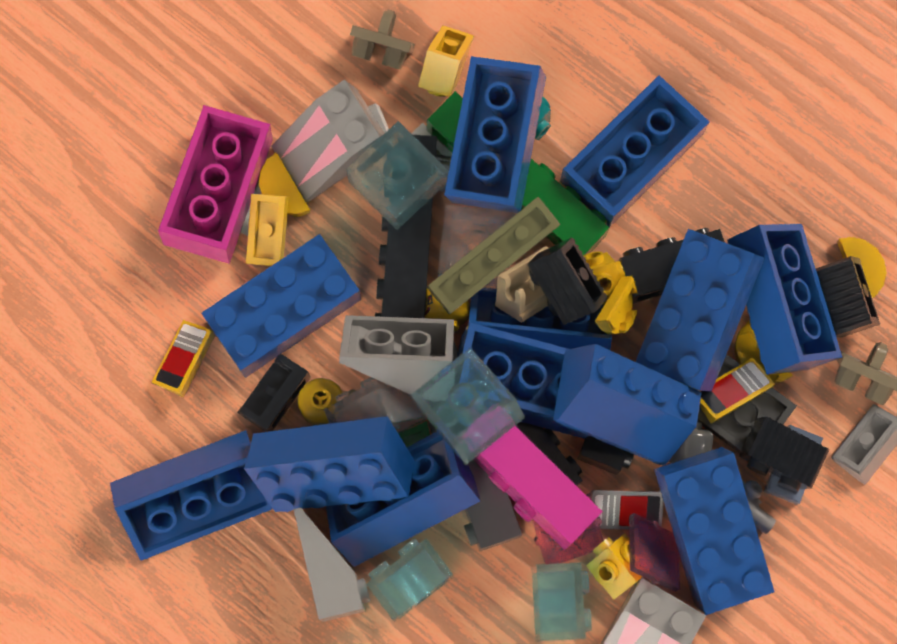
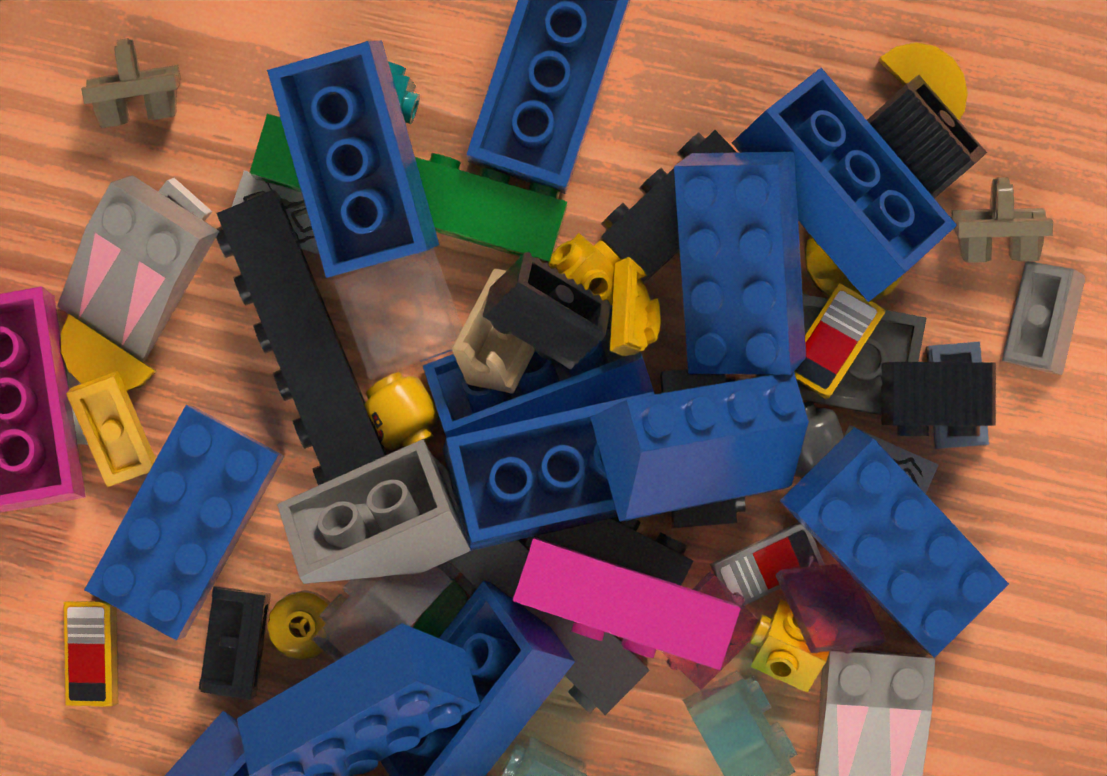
camera: 20 degrees left, 10 degrees up
(397, 175) = (249, 278): clear light blue brick -> none
(445, 61) = (232, 71): yellow slope -> none
(468, 406) = (500, 564): clear light blue brick -> none
(493, 255) = (432, 324): olive plate -> none
(762, 520) = (920, 468): light grey arm -> none

